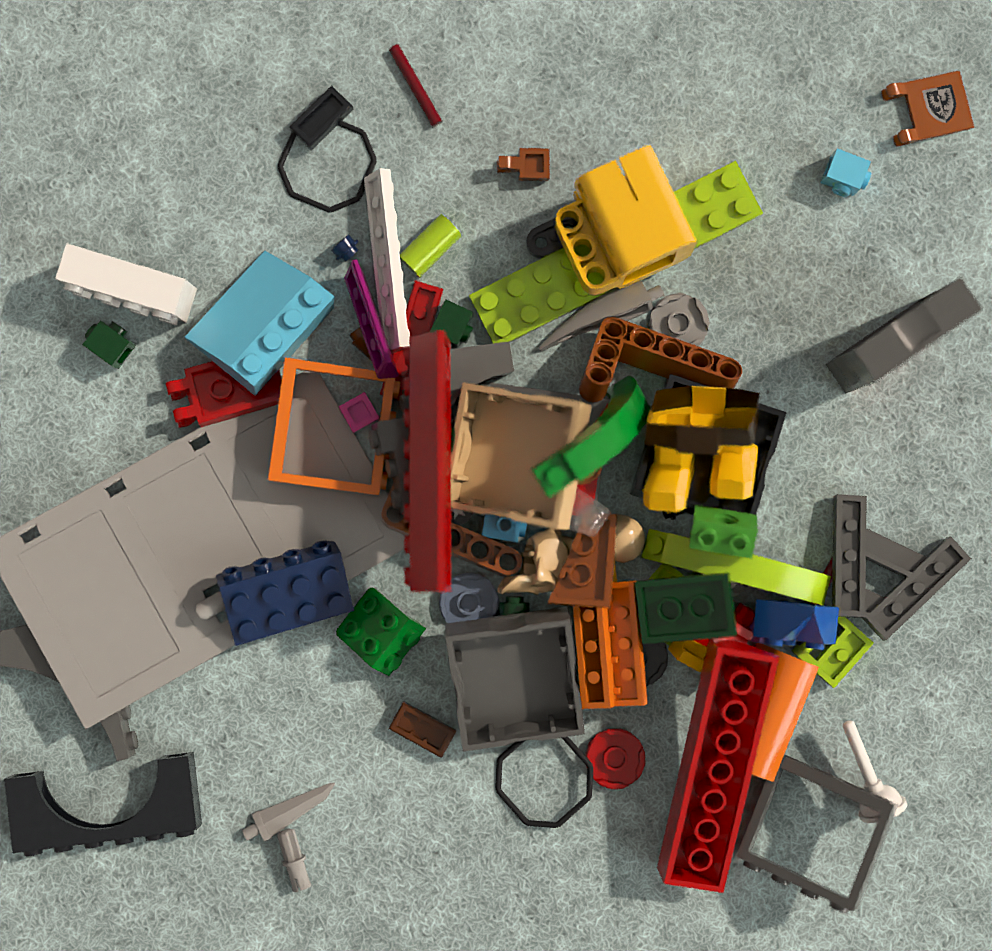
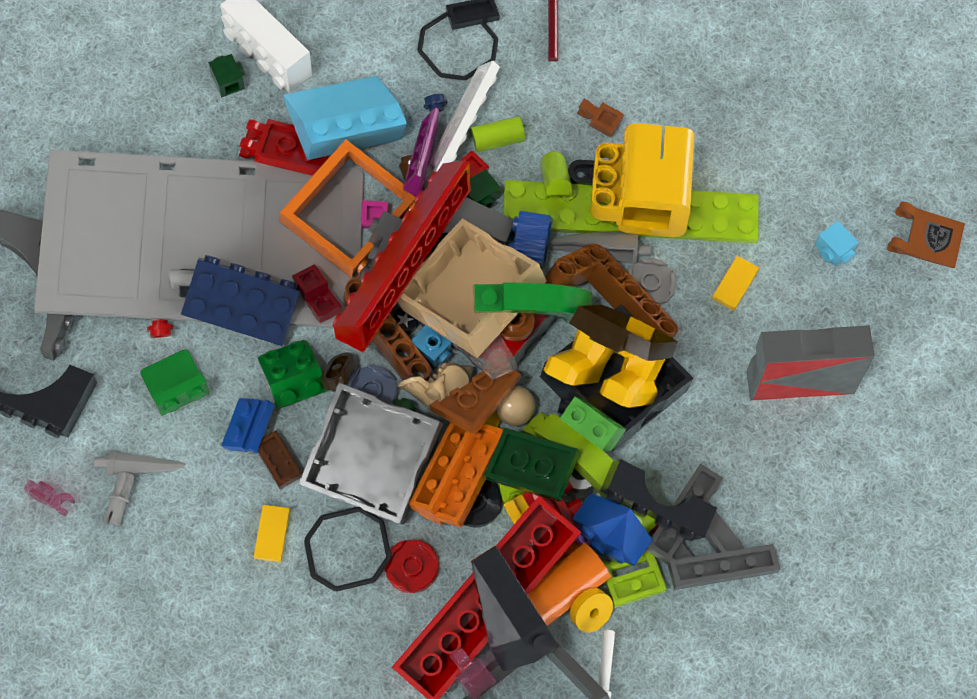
camera: 30 degrees right, 20 degrees down
(217, 900) = (43, 493): none -> clear pink plate
(221, 664) = (160, 329): none -> red plate
(271, 710) = (174, 382): none -> green bracket
(355, 535) = (316, 293): none -> dark red slope
(372, 713) = (247, 425): none -> blue plate
(428, 612) = (338, 371): none -> dark brown plate
(461, 805) = (271, 533): none -> yellow tile
(519, 262) = (555, 174): none -> lime brick
(536, 350) = (532, 235): none -> blue brick
(746, 849) = (473, 675): none -> clear pink plate
(756, 780) = (511, 620): none -> black wedge
(764, 274) = (735, 283): none -> yellow tile
(815, 708) = (591, 610): none -> yellow piece
(862, 567) = (627, 485): none -> black arch

